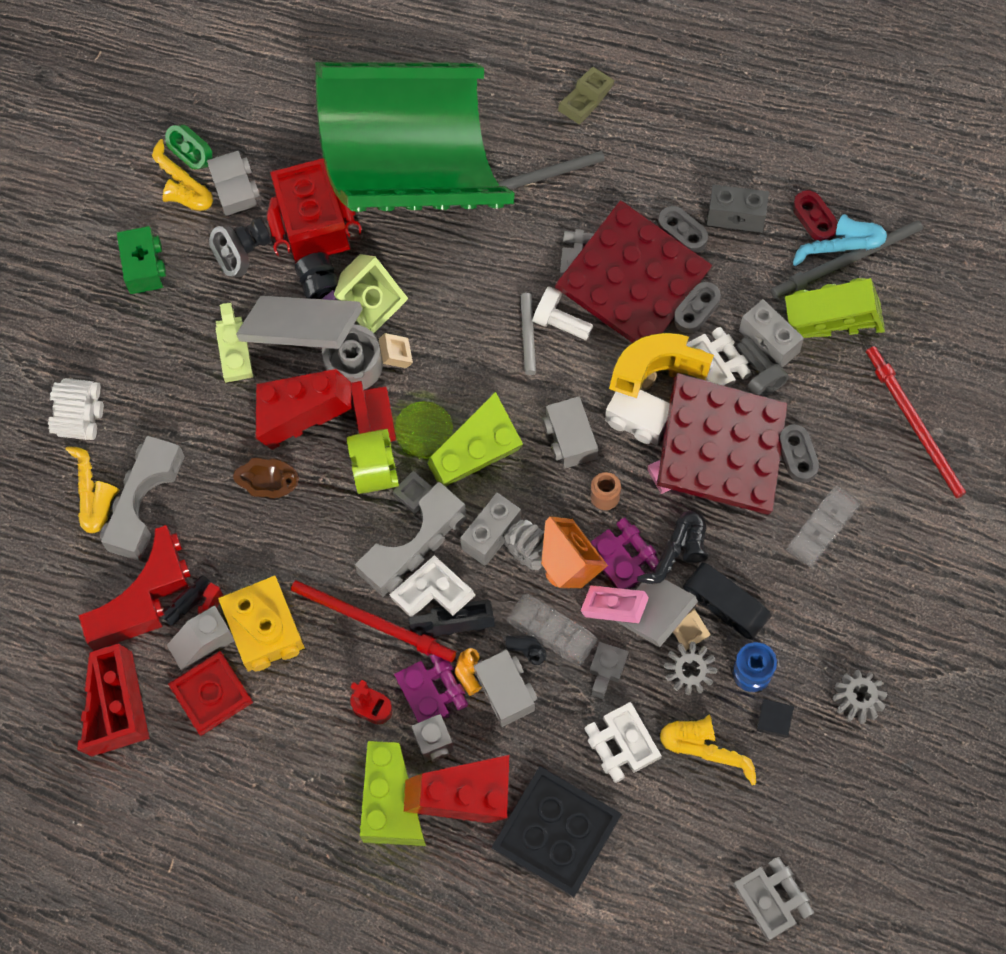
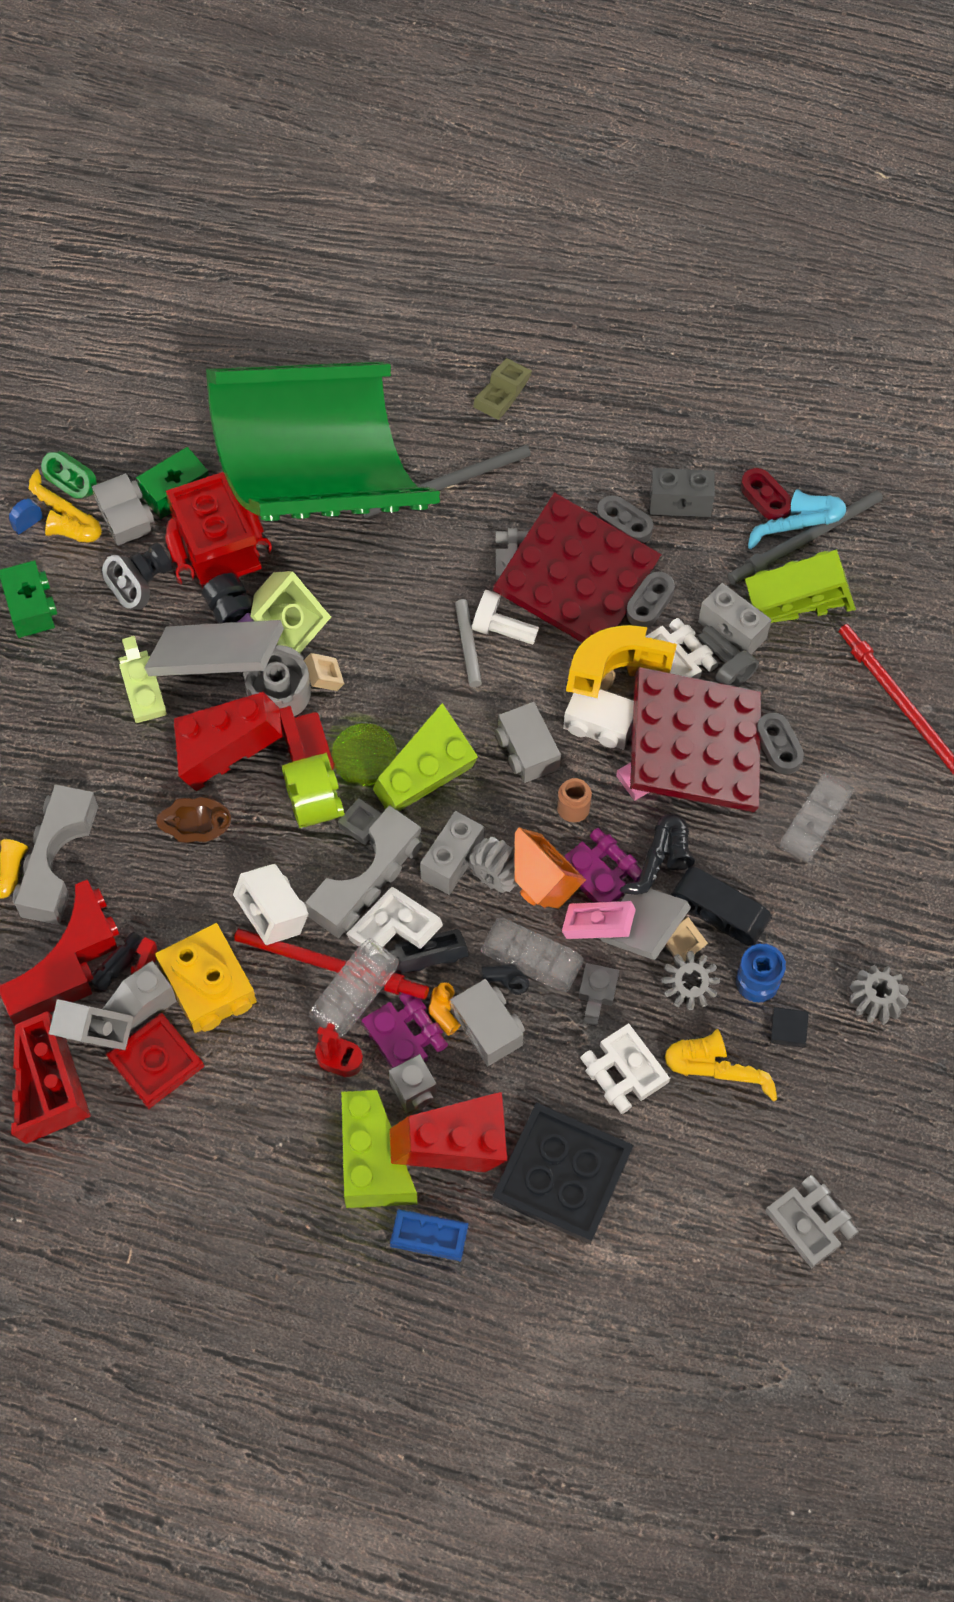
camera: 10 degrees left, 5 degrees down
(146, 181) = (24, 515): none -> blue tile
(155, 659) = (90, 1025): none -> light grey brick
(278, 155) = (169, 474): none -> green brick
(325, 562) = (270, 904): none -> white brick
(389, 647) = (354, 987): none -> clear beam
(432, 876) = (429, 1235): none -> blue plate

